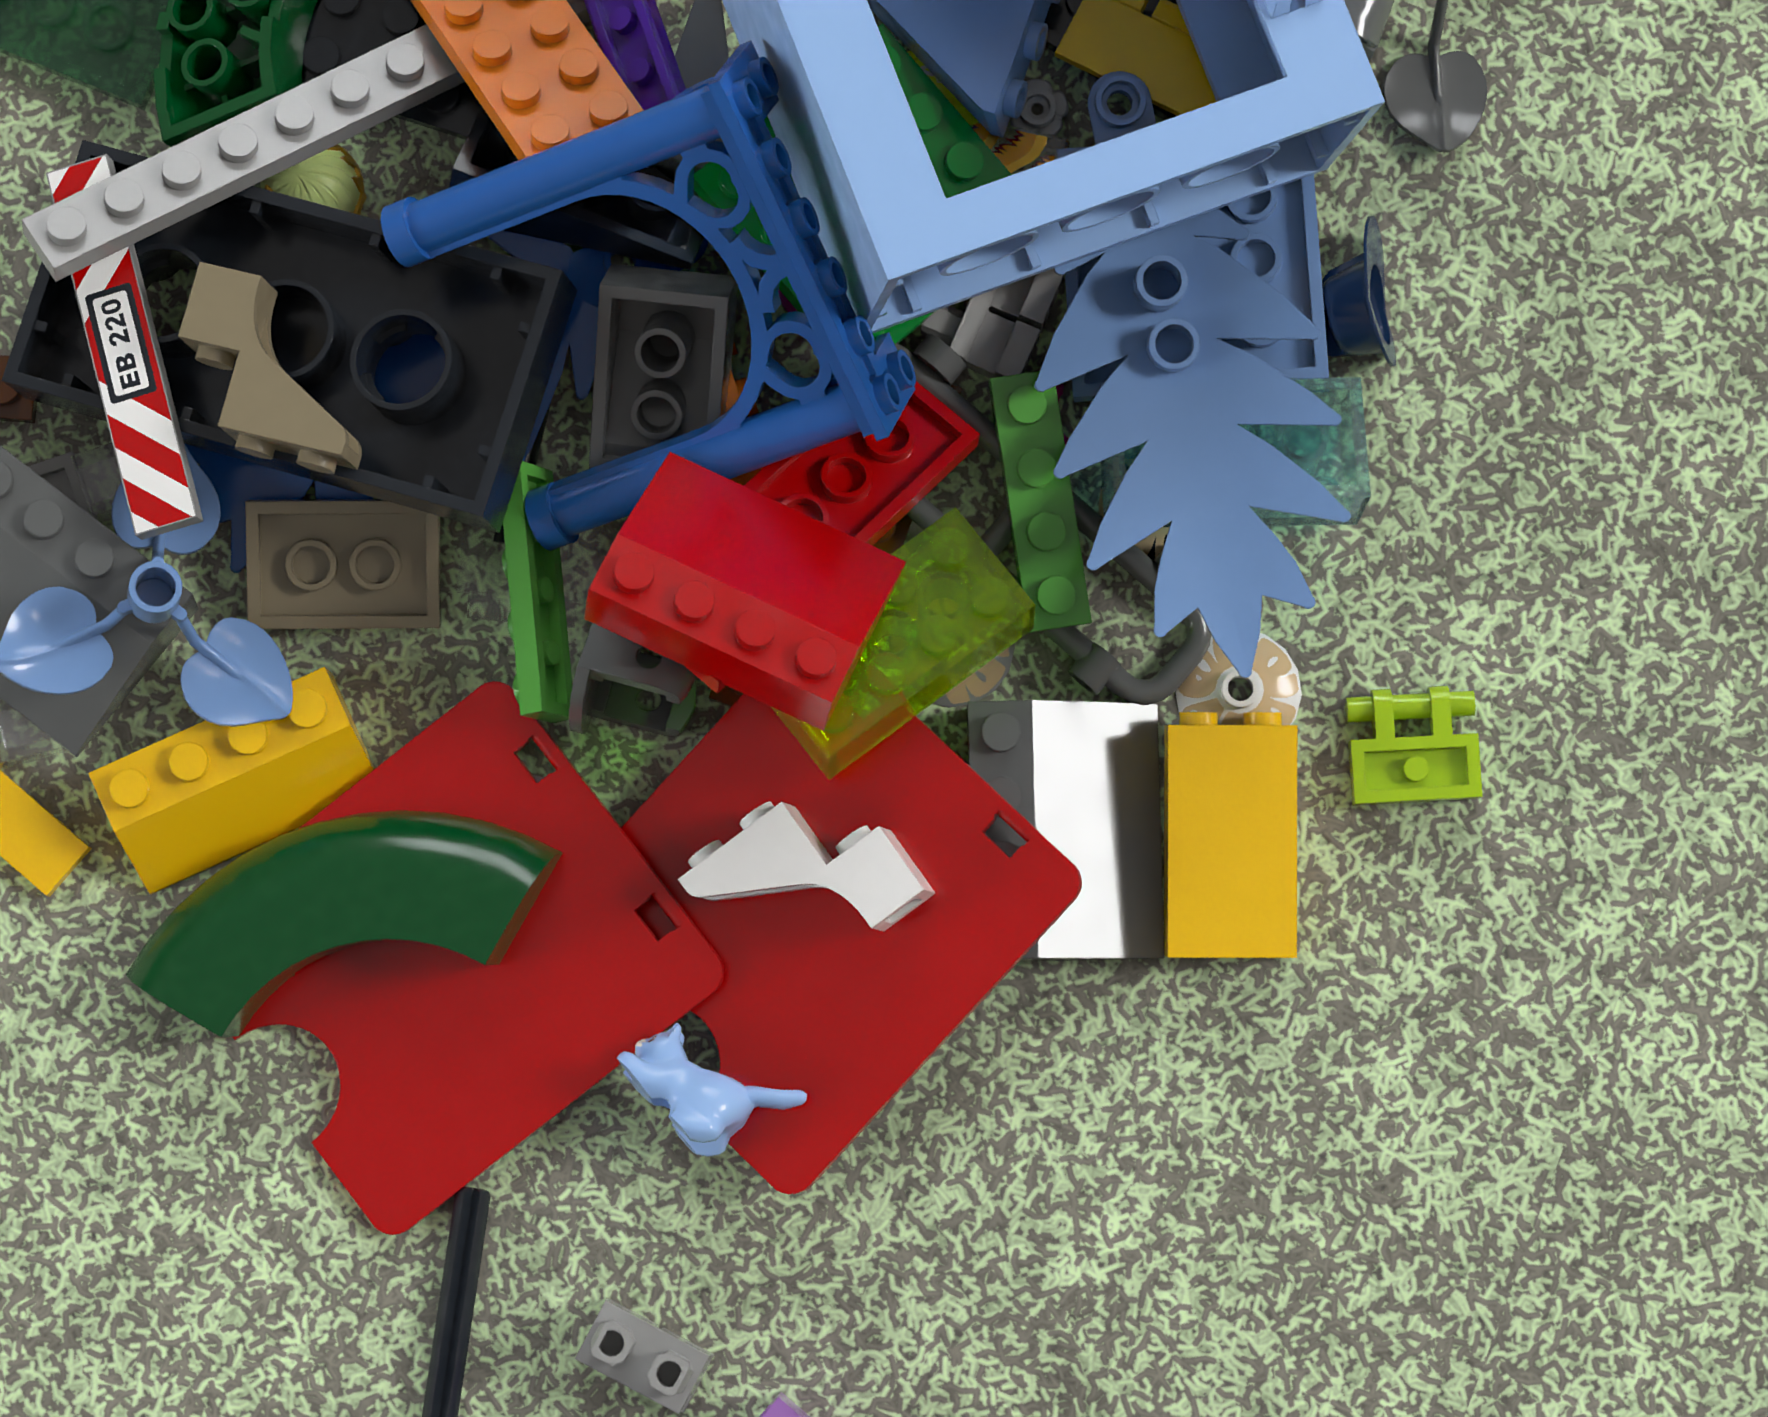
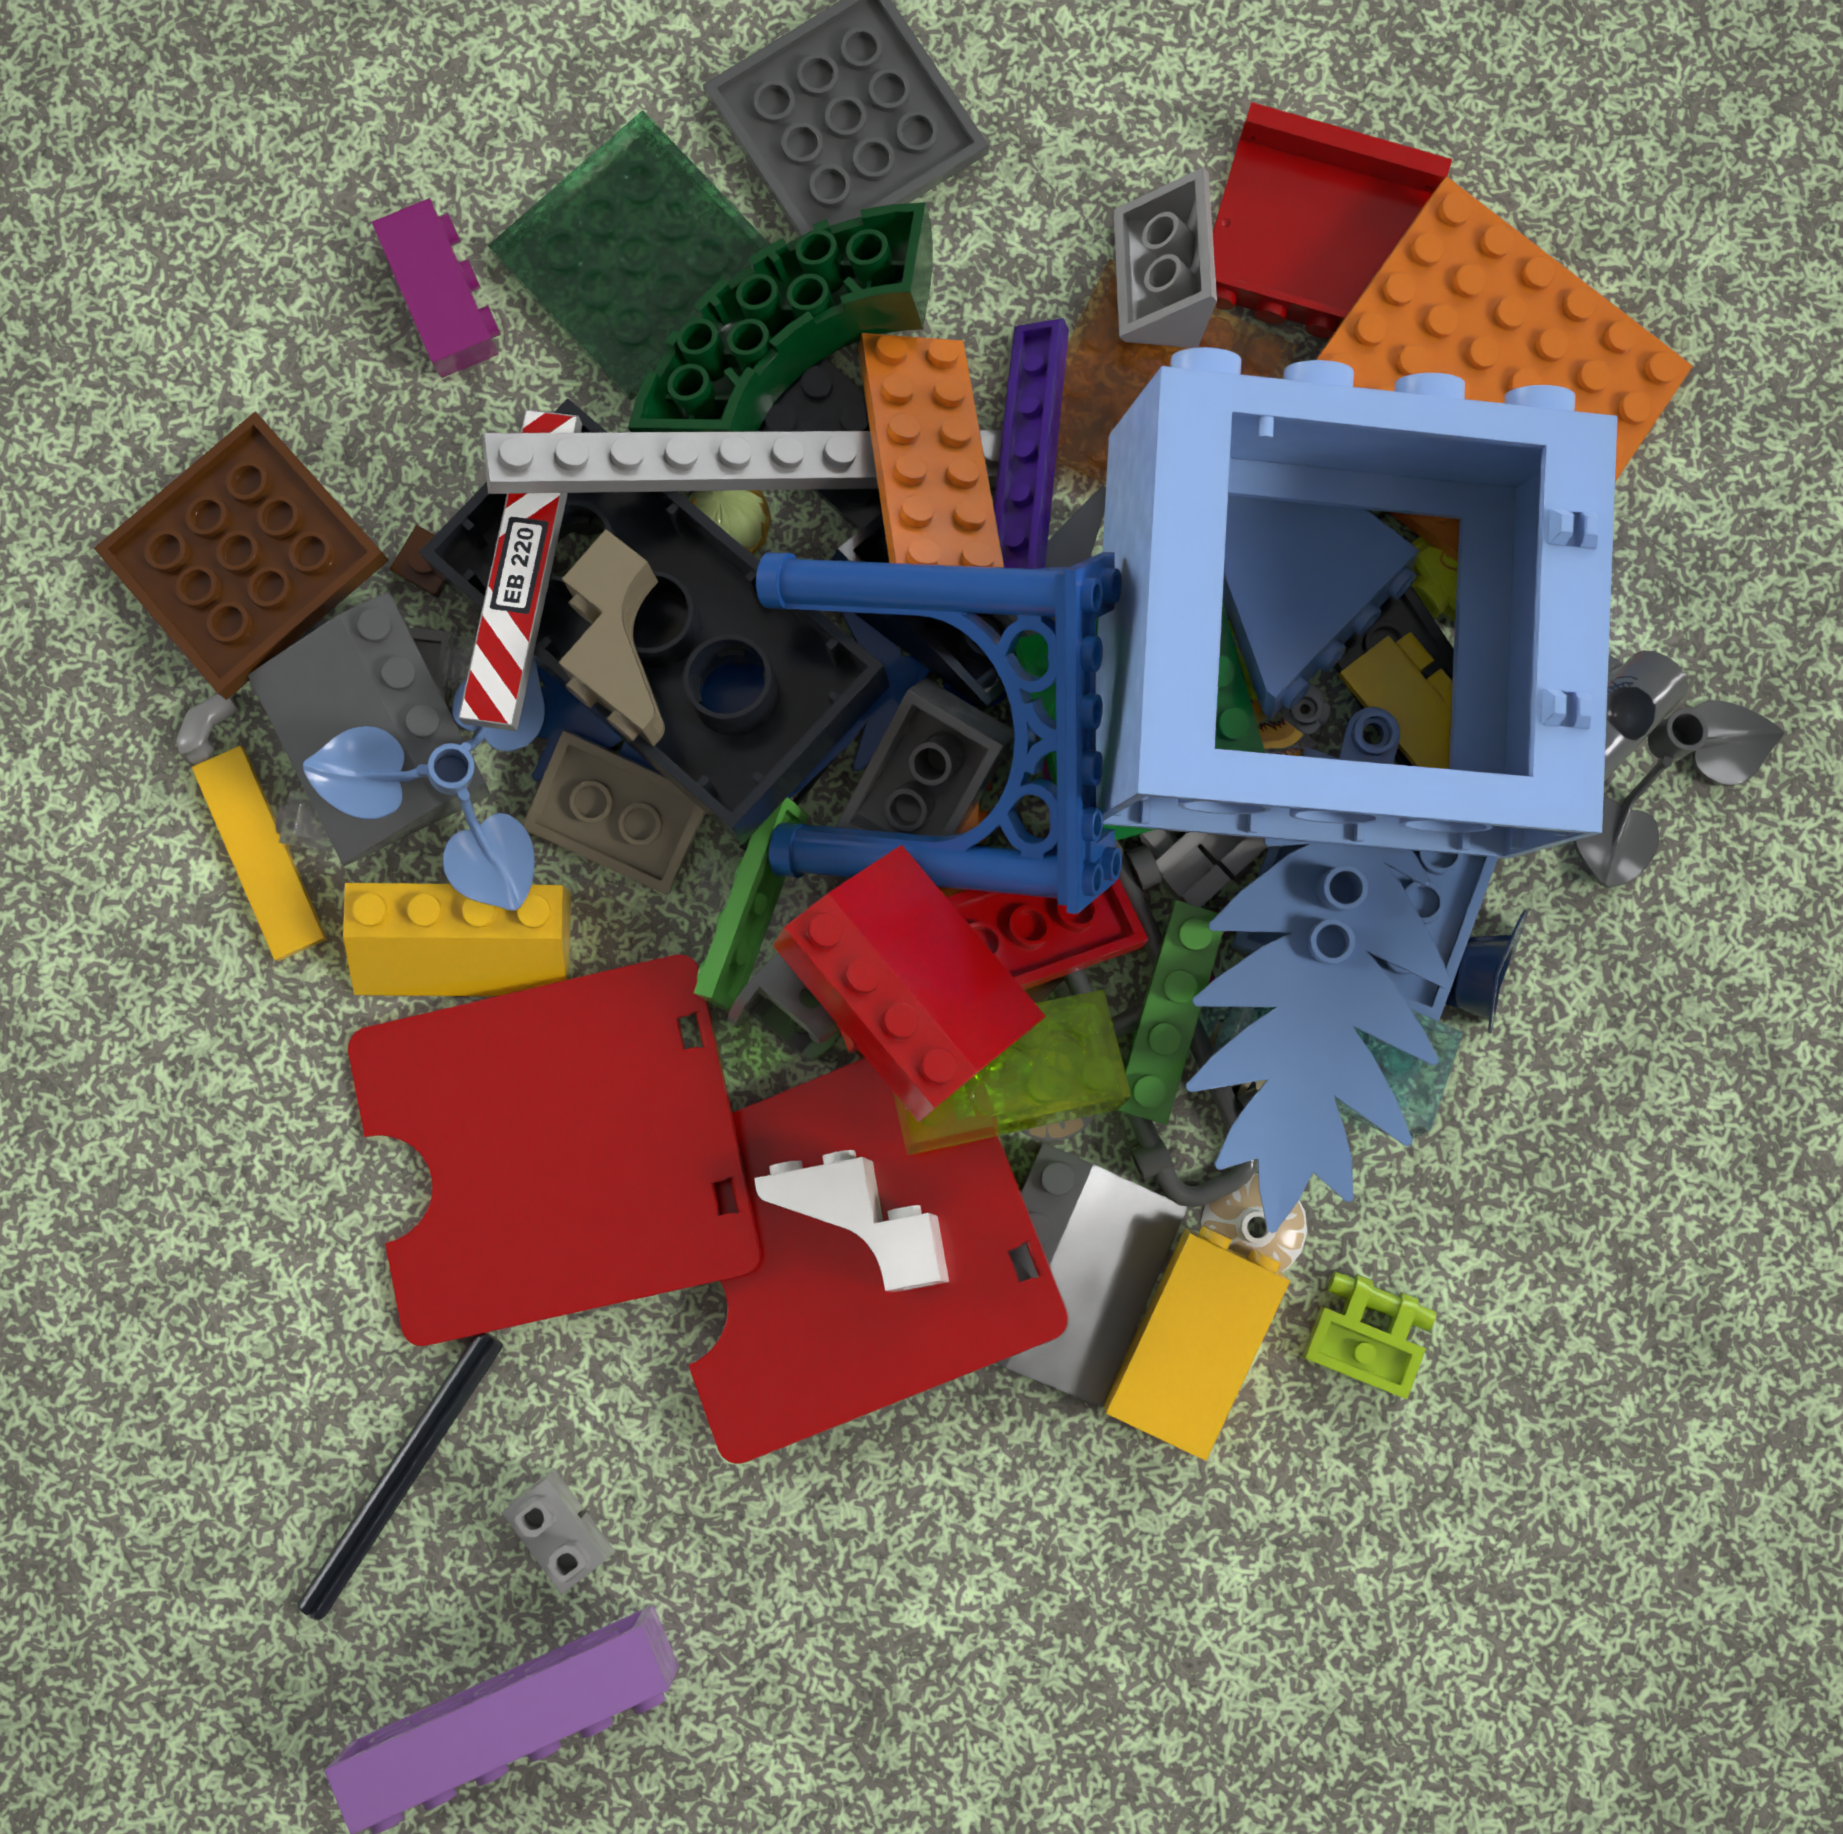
camera: 20 degrees right, 0 degrees up
(334, 889) = (494, 1059): dark green brick -> none
(702, 1102) = (692, 1359): light blue animal -> none

